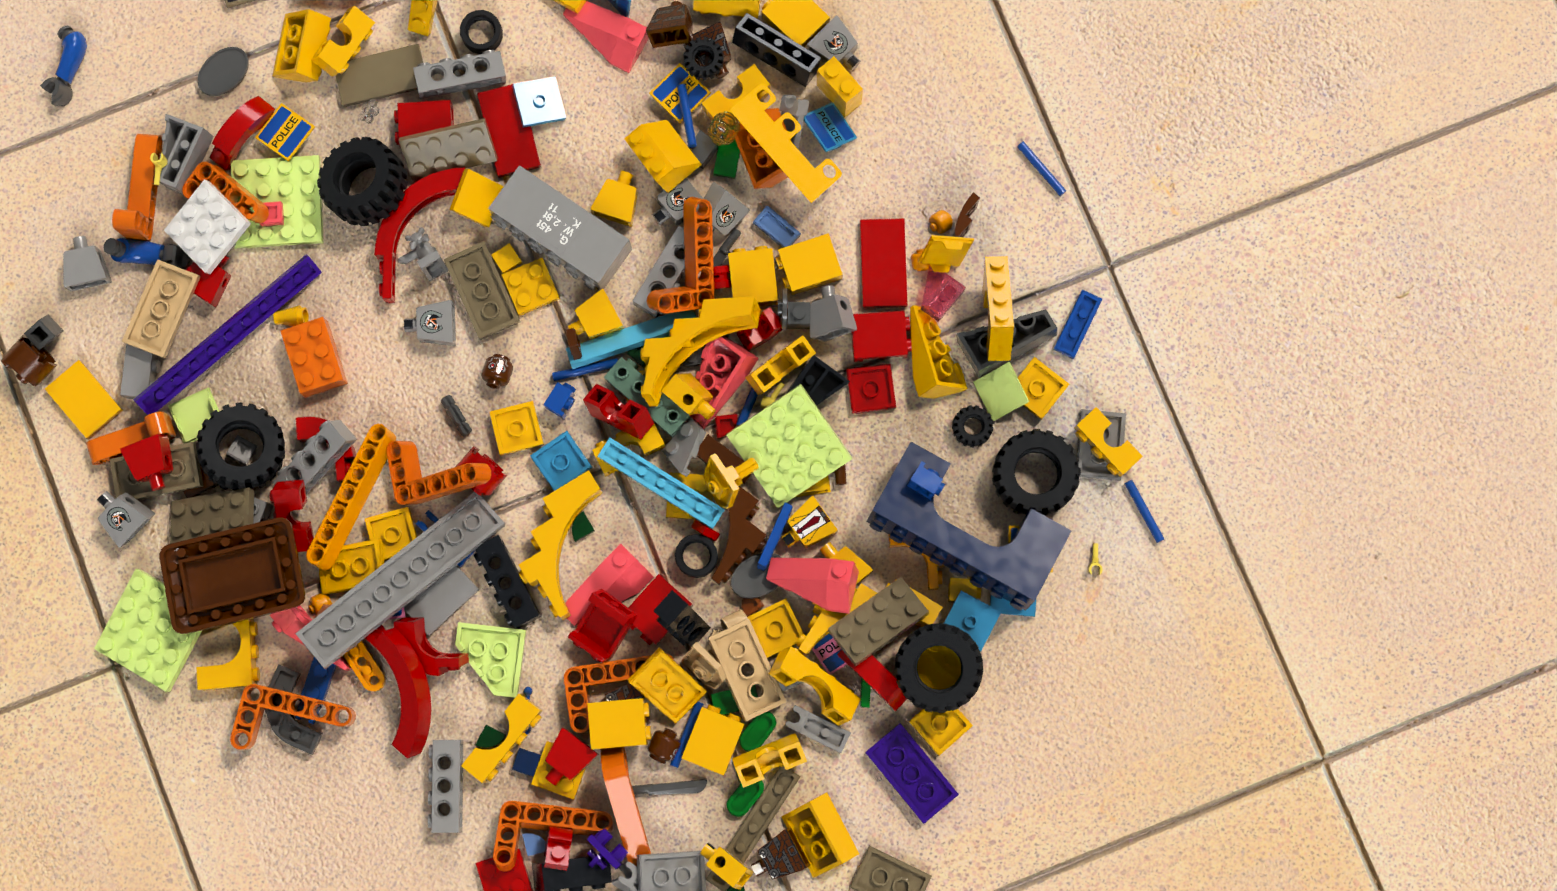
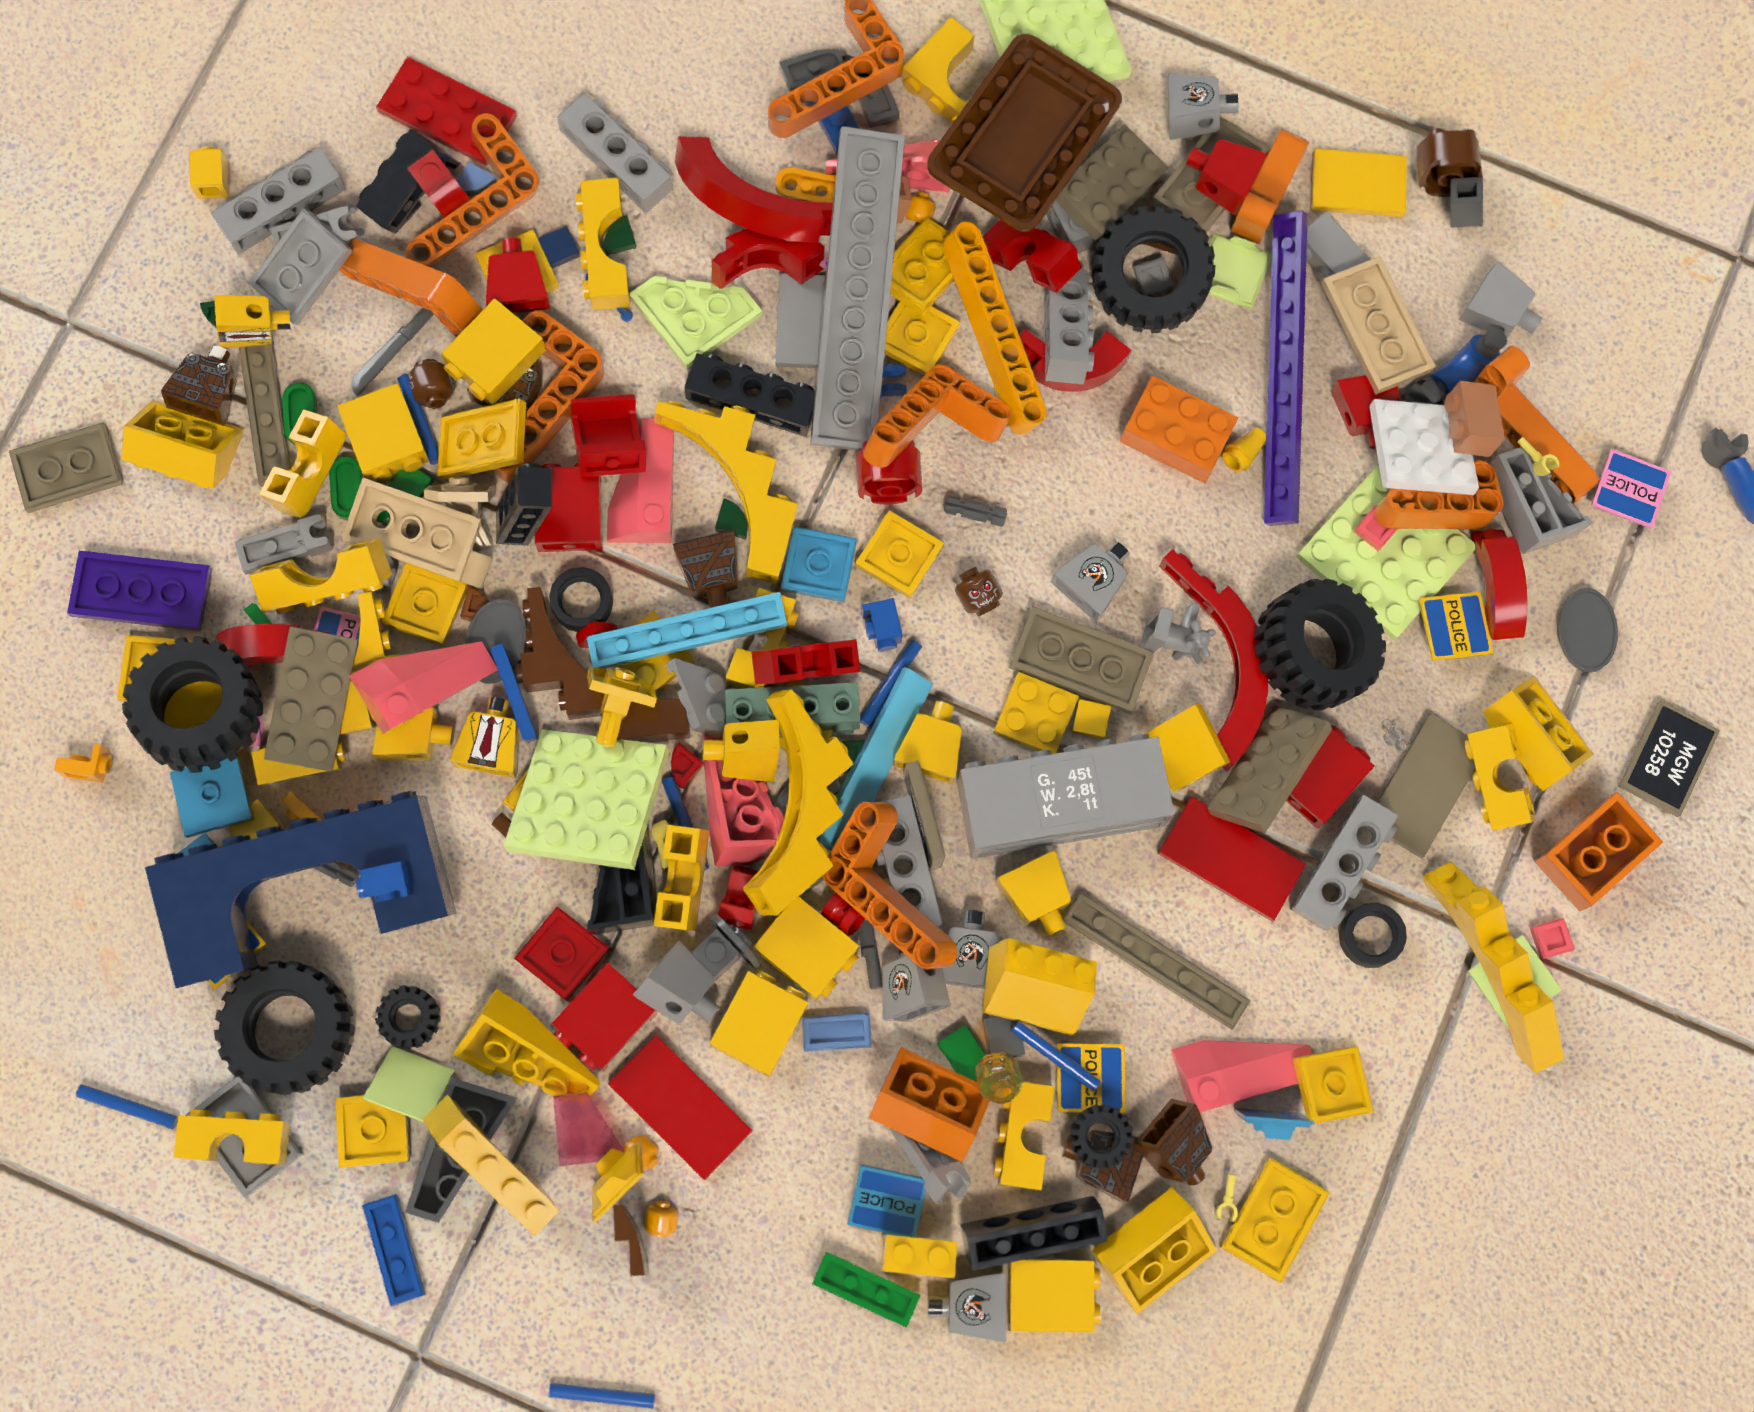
camera: 125 degrees right, 5 degrees down
(126, 115) = (1631, 488): none -> piece
(169, 213) = (1474, 418): none -> nougat brick
(539, 101) = (1231, 918): plate -> none
(574, 343) = (926, 691): reddish brown tile -> none
(594, 118) = (1156, 960): none -> dark tan tile
(614, 857) = (387, 218): dark purple hips -> none
(617, 510) = (709, 566): none -> torso
(638, 277) = (924, 815): none -> dark tan tile
(777, 144) = (916, 1110): yellow piece -> none
(877, 100) = (866, 1289): none -> green plate
(1022, 704) = (82, 768): none -> light orange bracket
(1095, 560) = (134, 996): light yellow hand -> none

